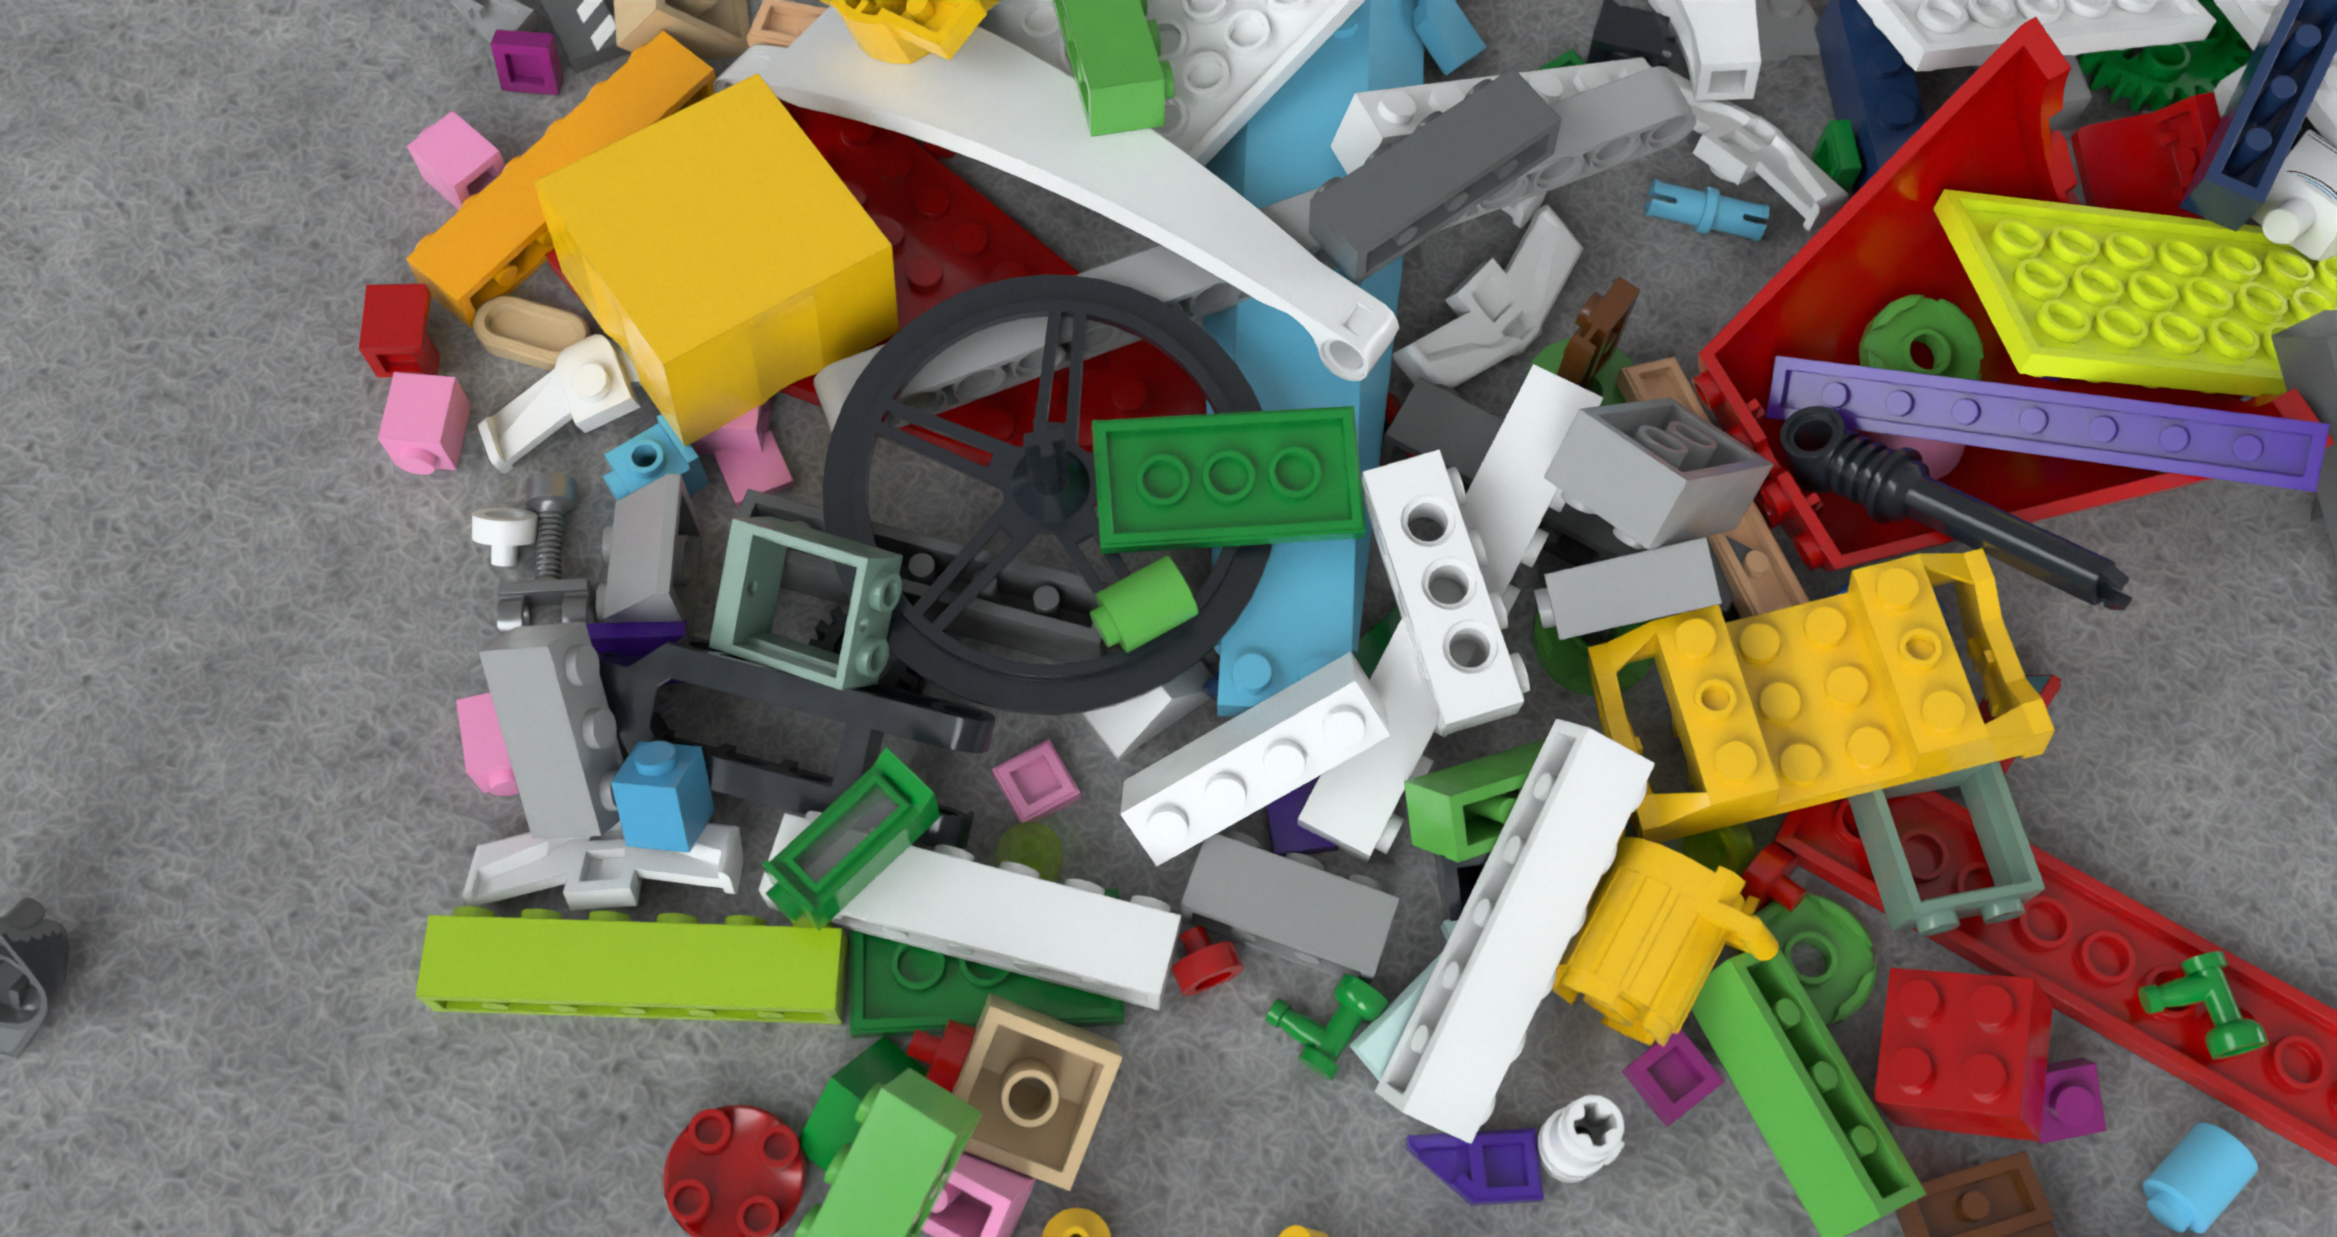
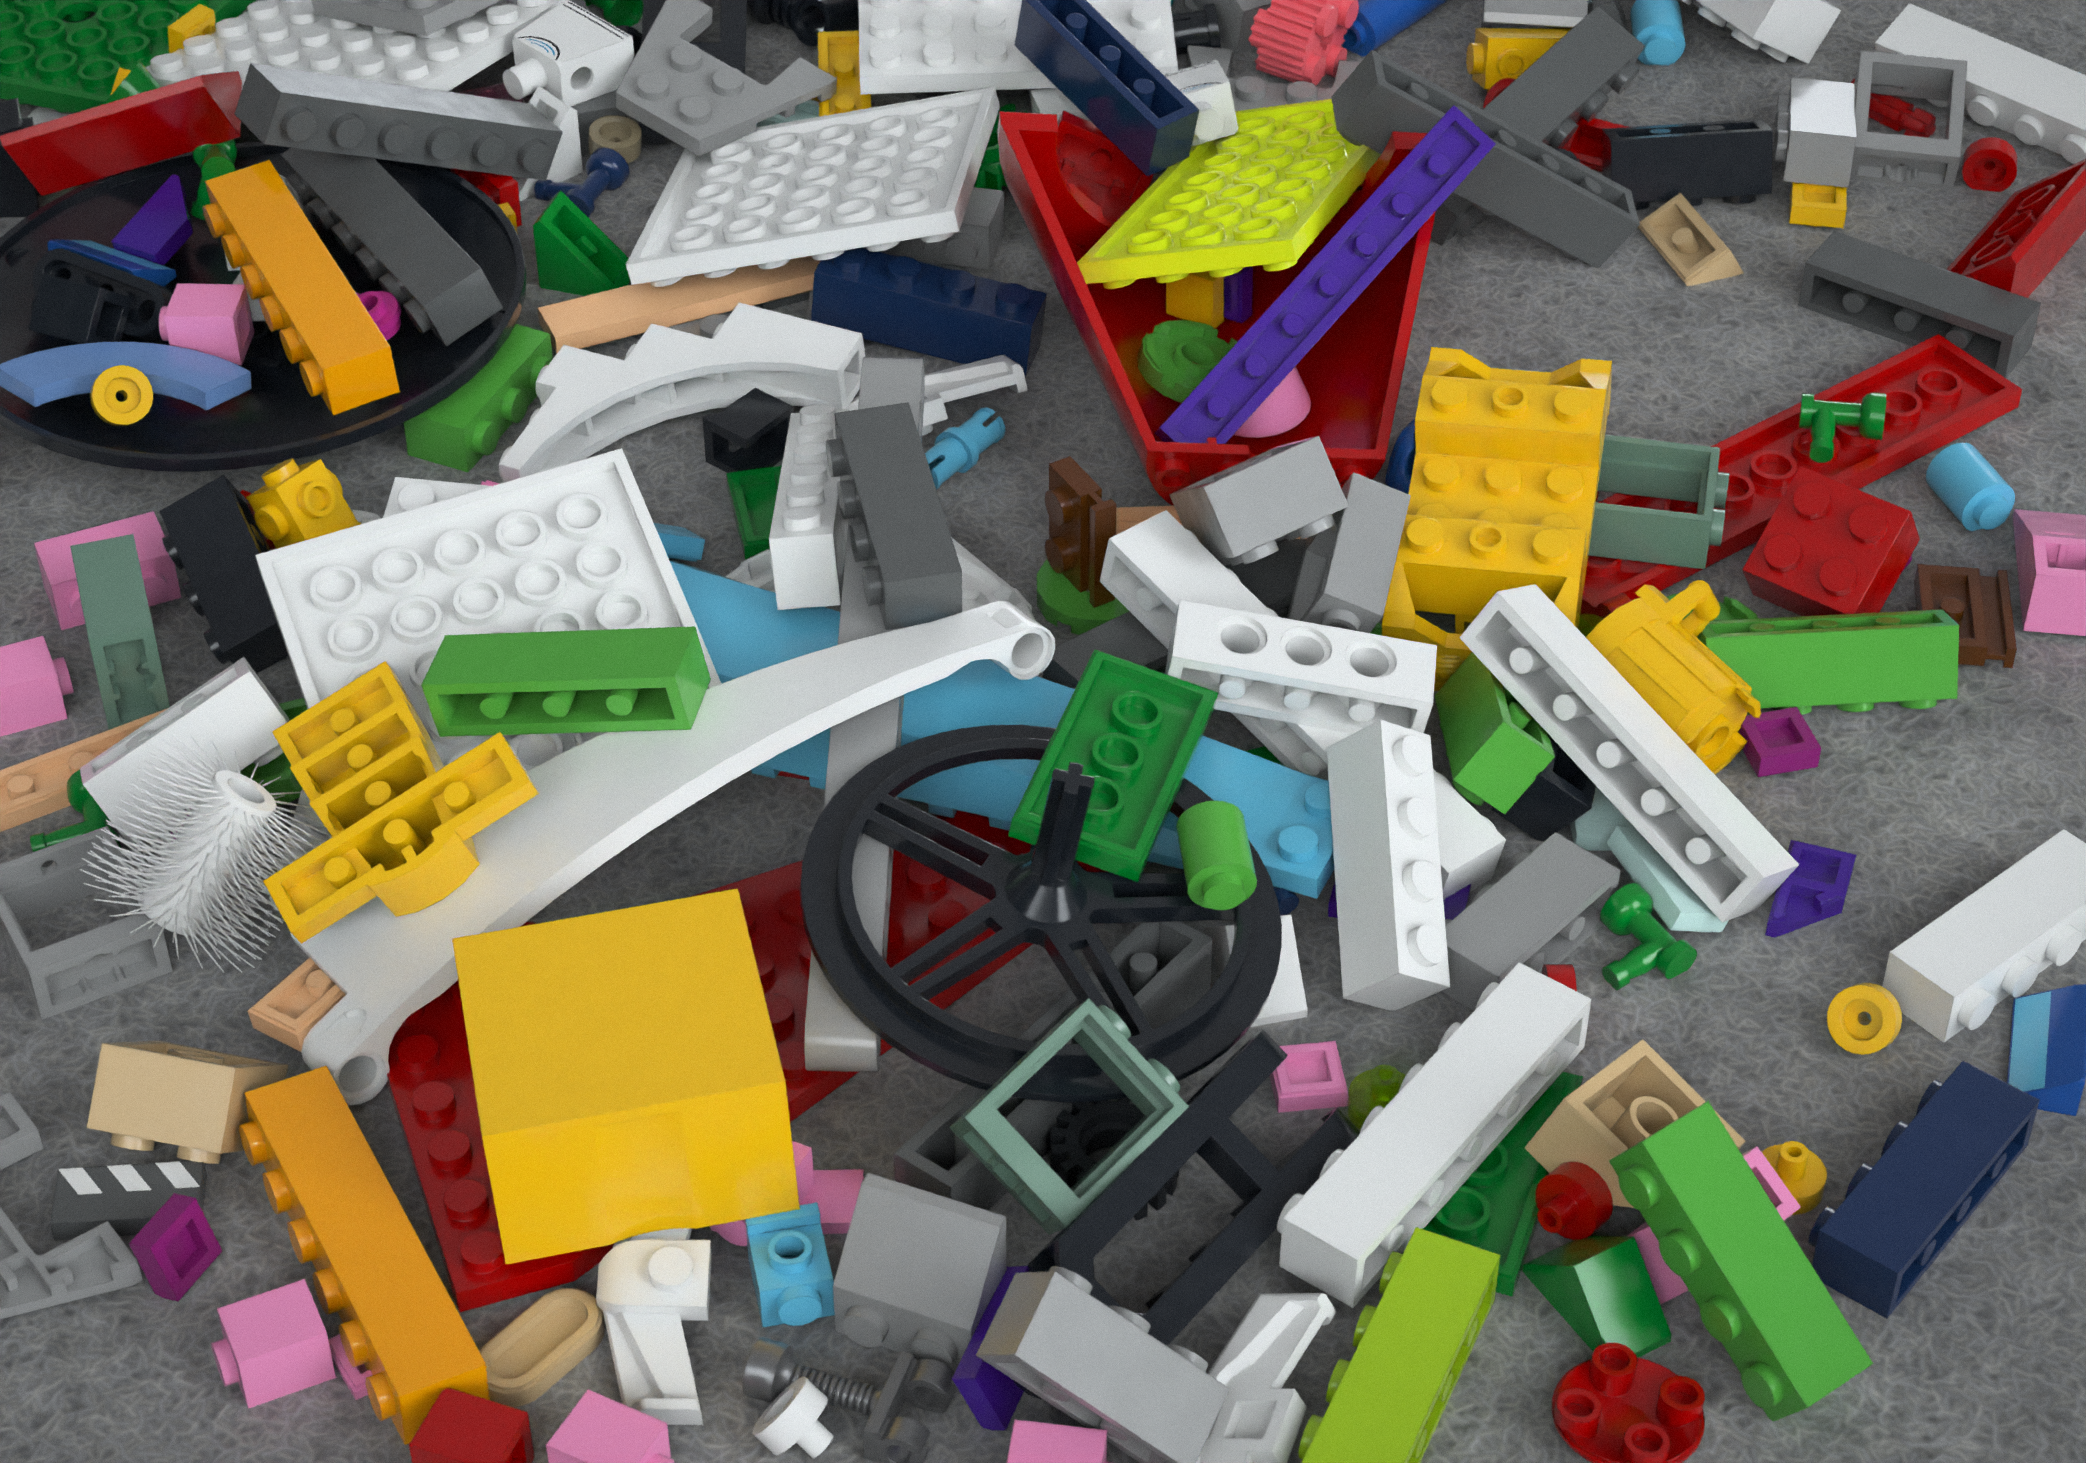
camera: 65 degrees left, 25 degrees down
(663, 796) = (1214, 1314): dark azure brick -> none
(851, 842) = (1350, 1148): green window -> none
(1580, 1138) = (1820, 787): white axle -> none
(1838, 153) = (956, 346): green tile -> none
(1900, 487) = (1339, 386): black piece -> none

